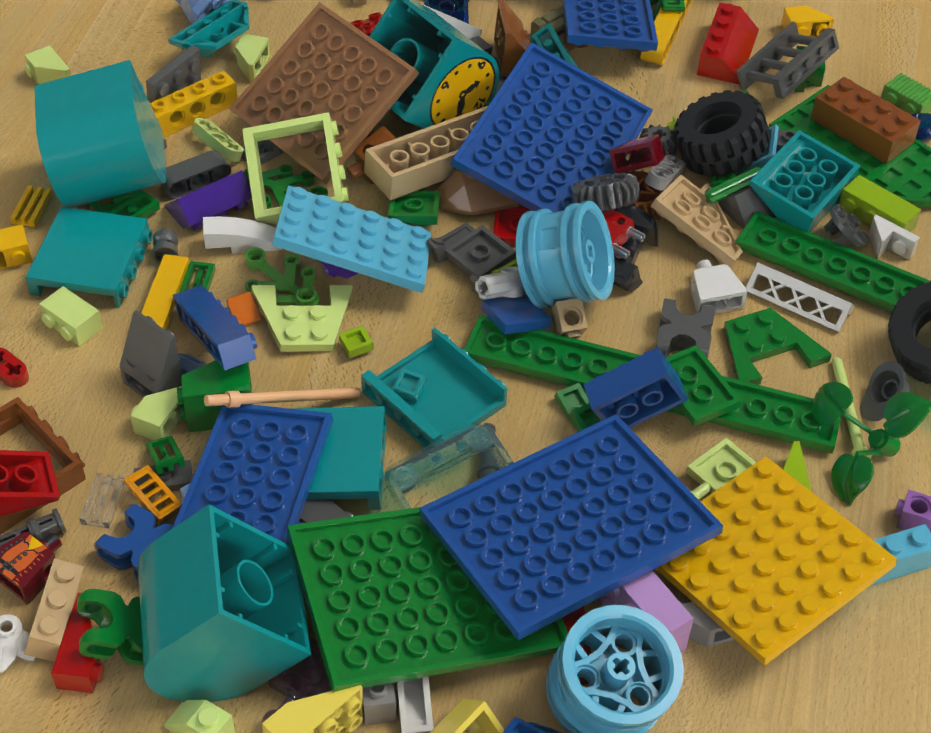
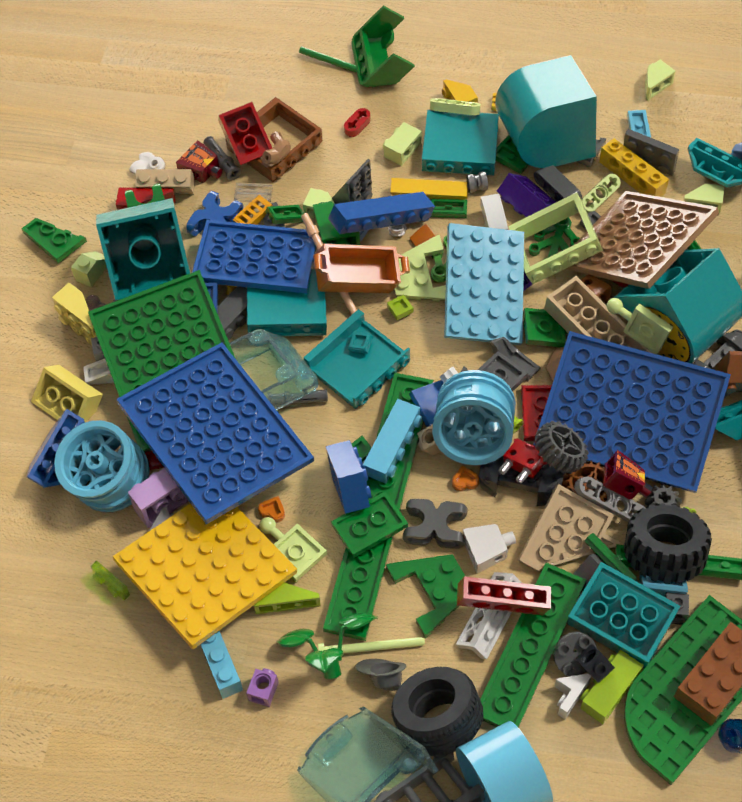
camera: 90 degrees right, 10 degrees up
(34, 245) = (455, 106): none -> yellowish green beam
(51, 440) = (278, 152): none -> medium nougat arm
(304, 360) = (359, 268): none -> orange container
(460, 96) = (642, 325): none -> yellowish green plate
(570, 349) = (392, 440): none -> medium azure brick
(619, 305) = (465, 479): none -> orange tile
(773, 696) = (114, 585): none -> clear neon green plate
(799, 261) = (503, 596): none -> brick
(854, 206) = (595, 663): none -> black brick

